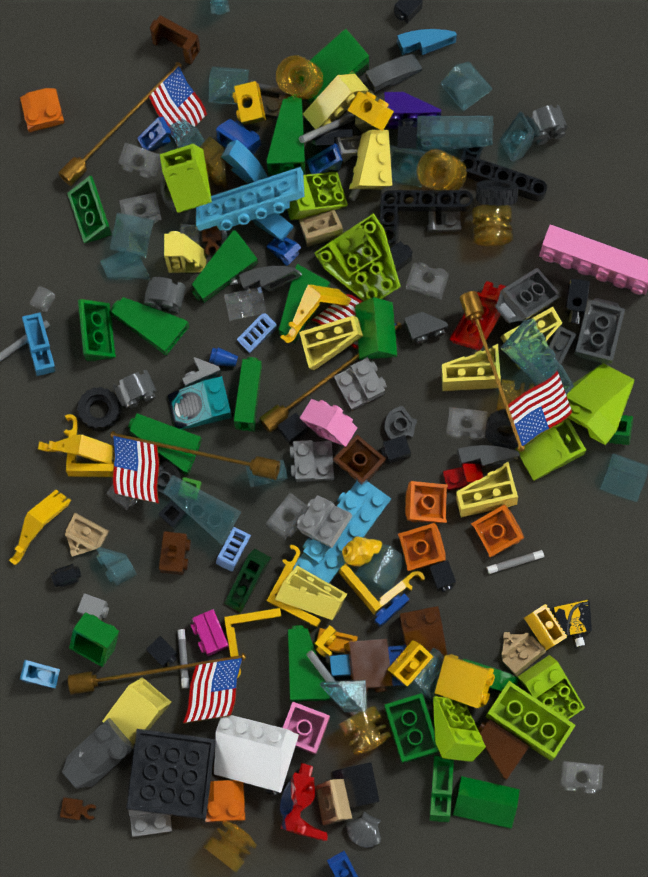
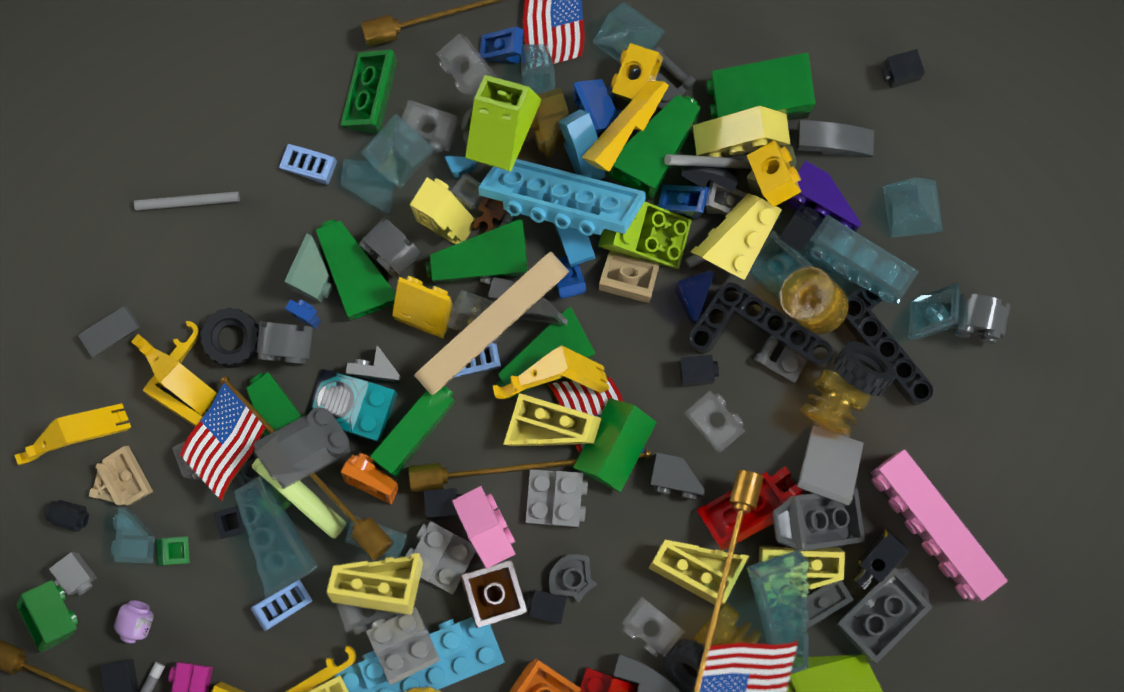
camera: 30 degrees right, 5 degrees up
(20, 450) = (109, 331): none -> dark grey slope
(38, 344) = (209, 216): dark azure slope -> none
(42, 298) = (249, 164): clear brick -> none
(77, 271) = (327, 171): none -> light blue slope
(96, 330) = (284, 237): green slope -> none
(124, 339) = (309, 272): none -> sand green slope
(135, 364) = (303, 312): none -> blue plate
(144, 558) = (172, 551): none -> green slope
(148, 612) = (133, 621): none -> lavender head
(173, 553) = (207, 568): reddish brown brick -> none
(174, 222) = (460, 165): none -> dark azure slope
(189, 440) = (302, 447): none -> dark grey slope
(203, 473) = (307, 503): none -> yellowish green brick
(207, 316) = (422, 307): none -> yellow slope
(222, 358) = (409, 362): blue cone -> none
(240, 439) = (363, 475): none -> orange slope
(247, 579) = (273, 654): dark green slope -> none
(256, 299) = (491, 323): none -> tan beam
(265, 126) = (635, 116): none -> yellow slope
(286, 493) = (378, 585): none -> light yellow wedge
(290, 74) = (702, 72): clear yellow wheel -> none
(362, 260) = (650, 349): lime wedge -> none
(364, 208) = (693, 293): none -> clear blue slope
(425, 40) = (898, 123): dark azure slope -> none
(512, 262) = (830, 465): none -> light grey tile

